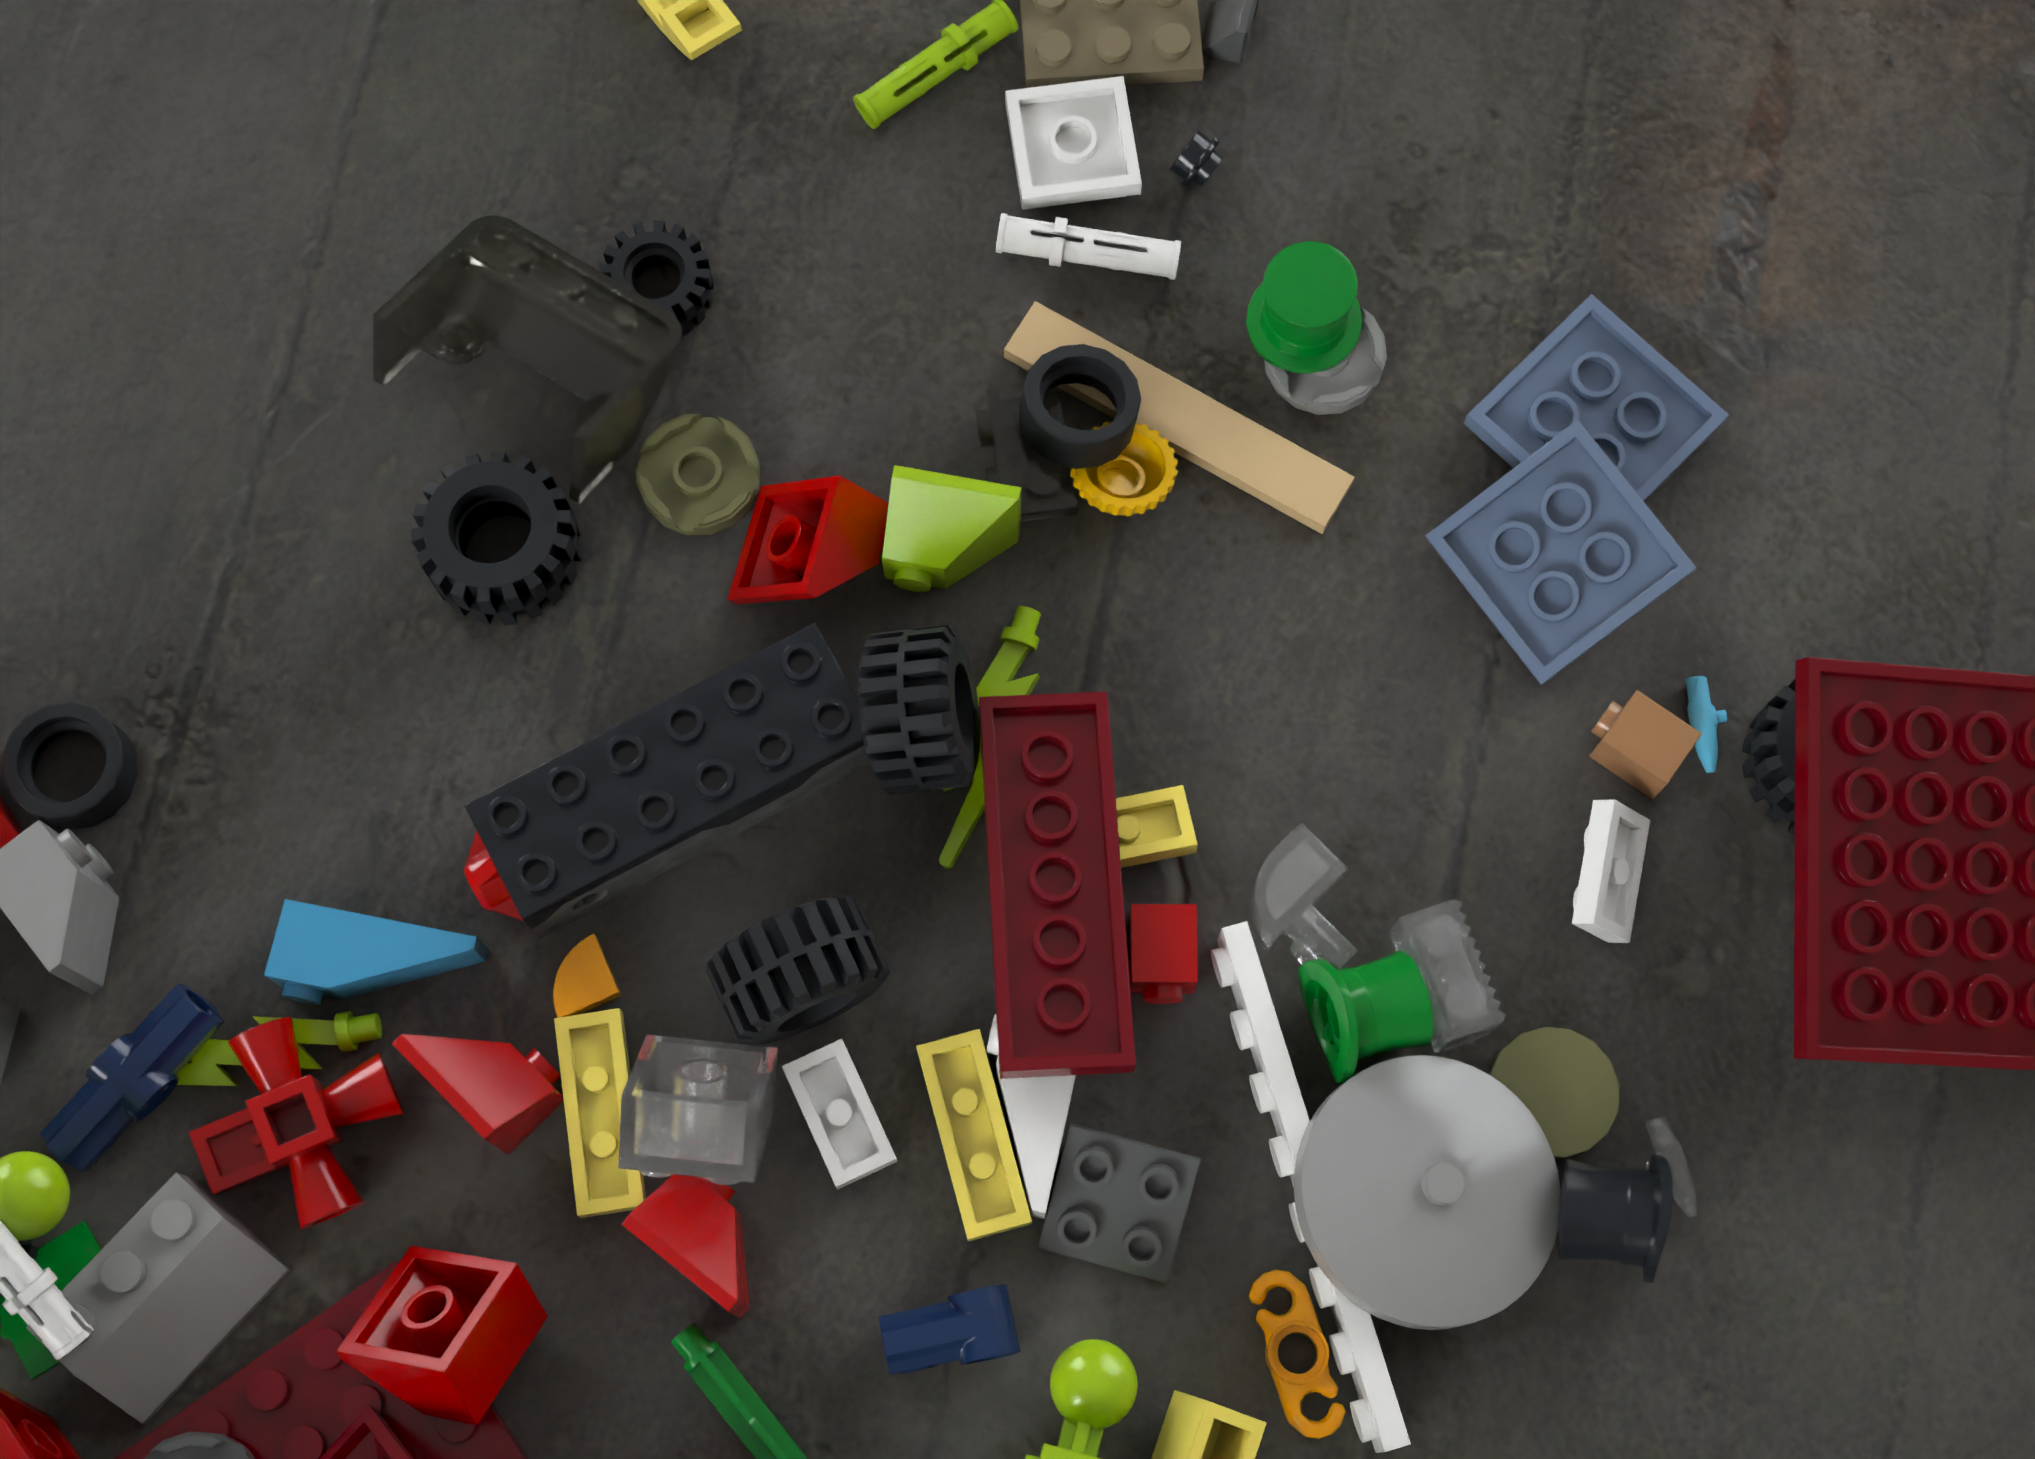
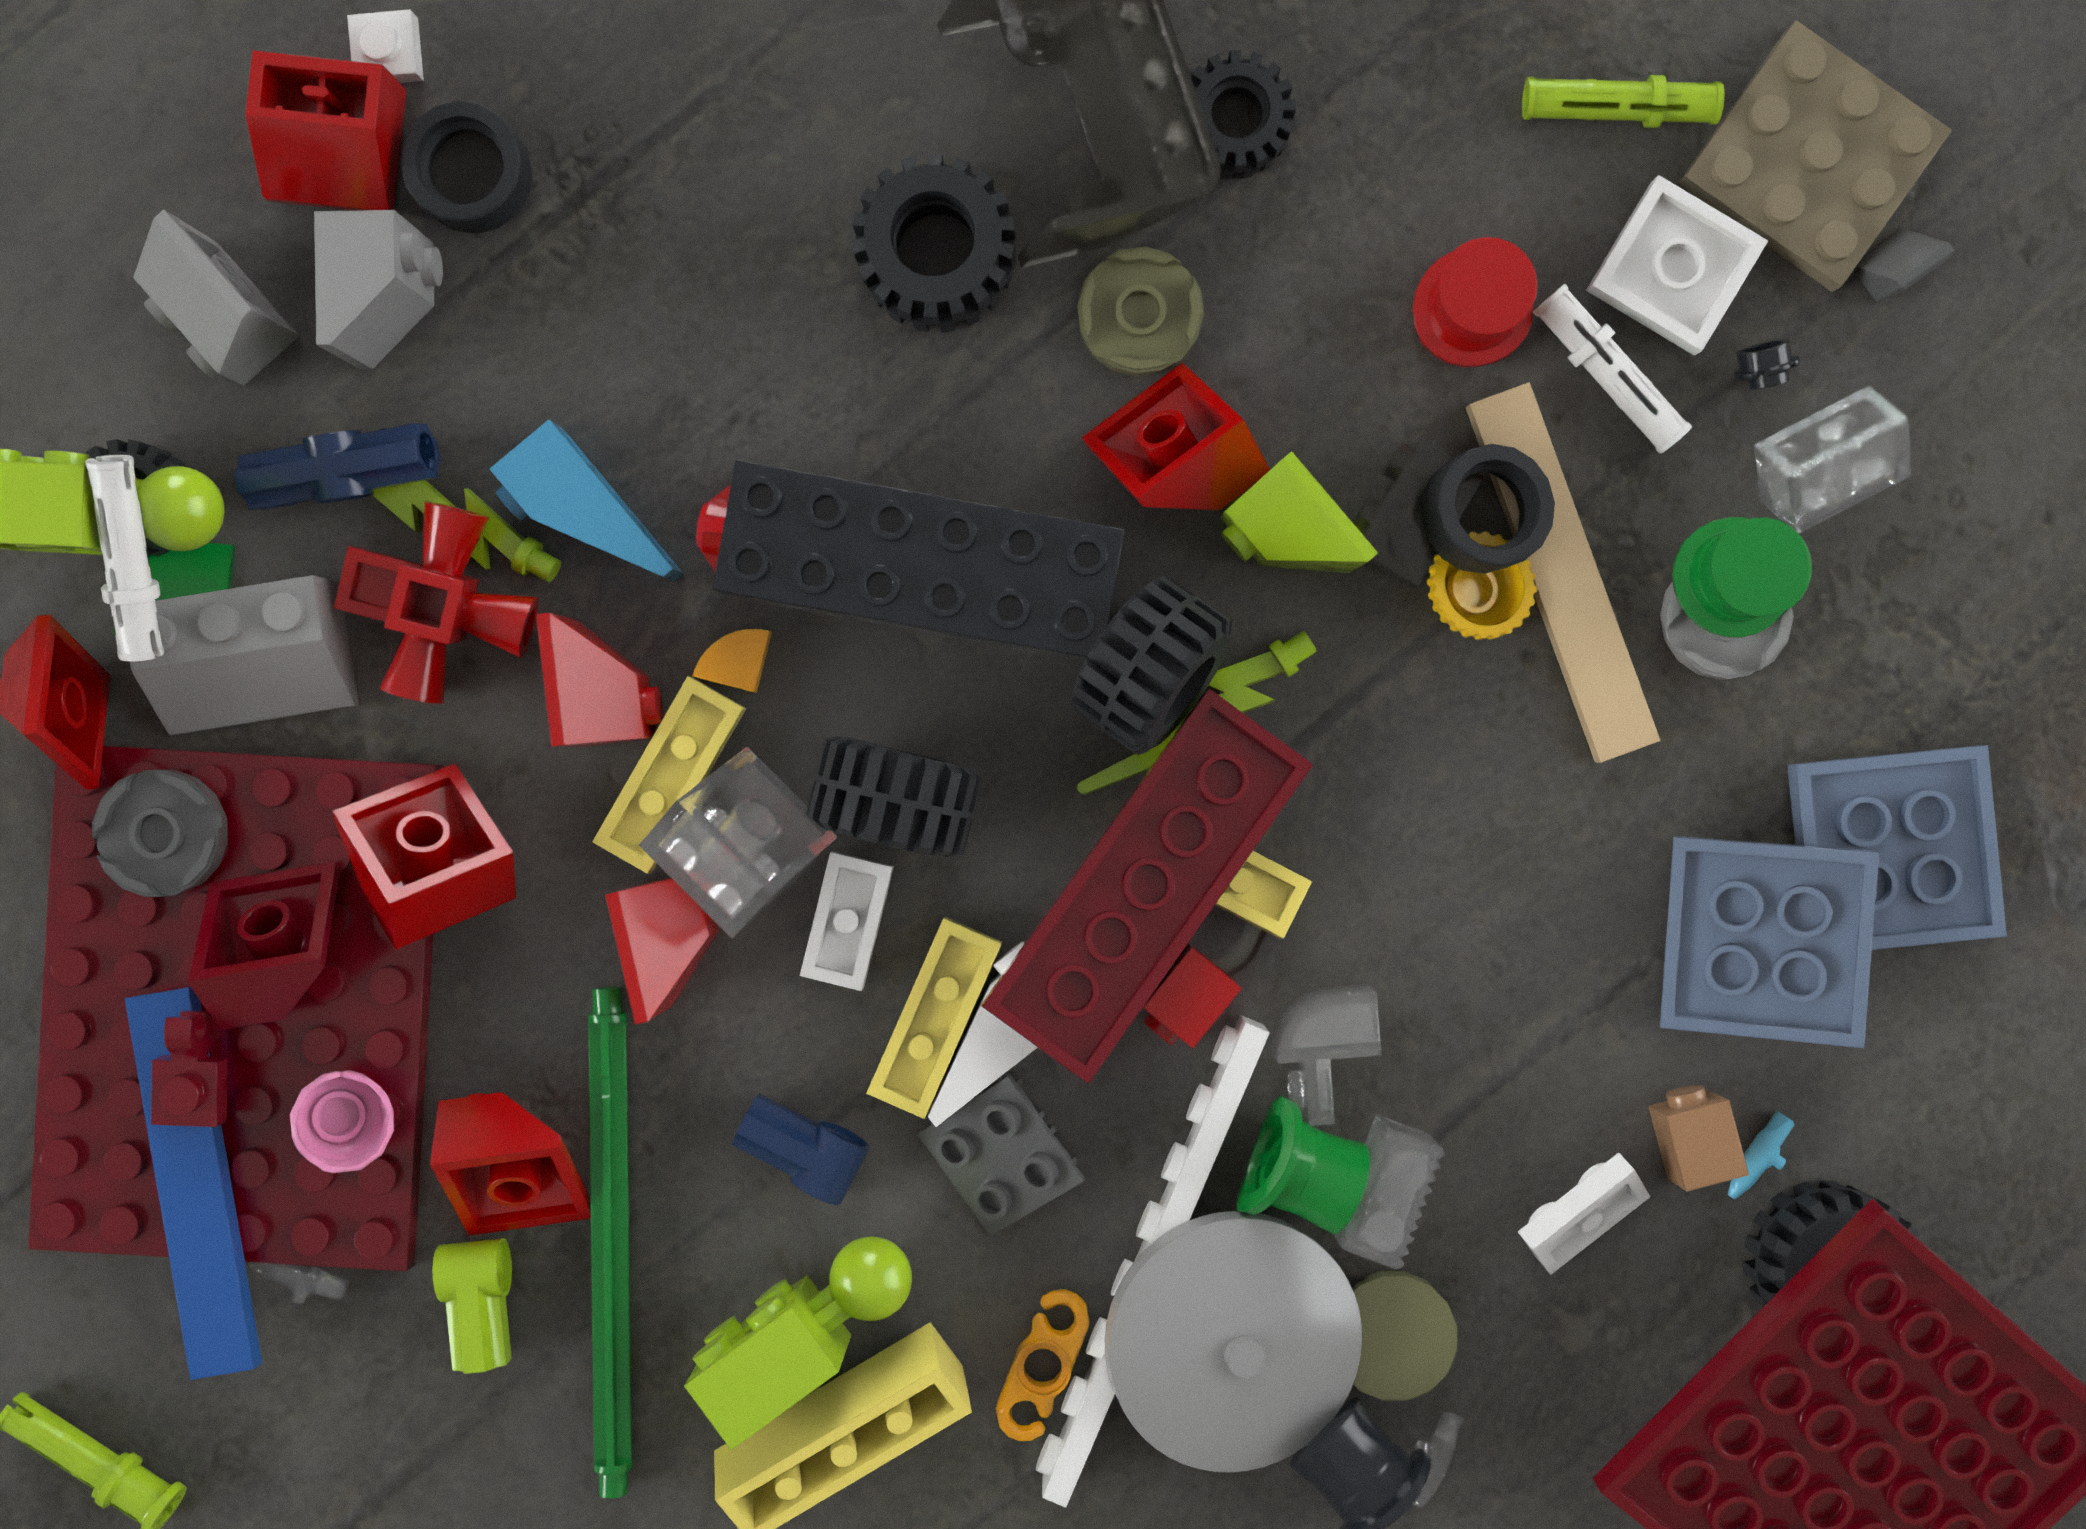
camera: 45 degrees right, 15 degrees up
(947, 273) = (1476, 303): none -> red piece
(1301, 181) = (1833, 459): none -> clear brick

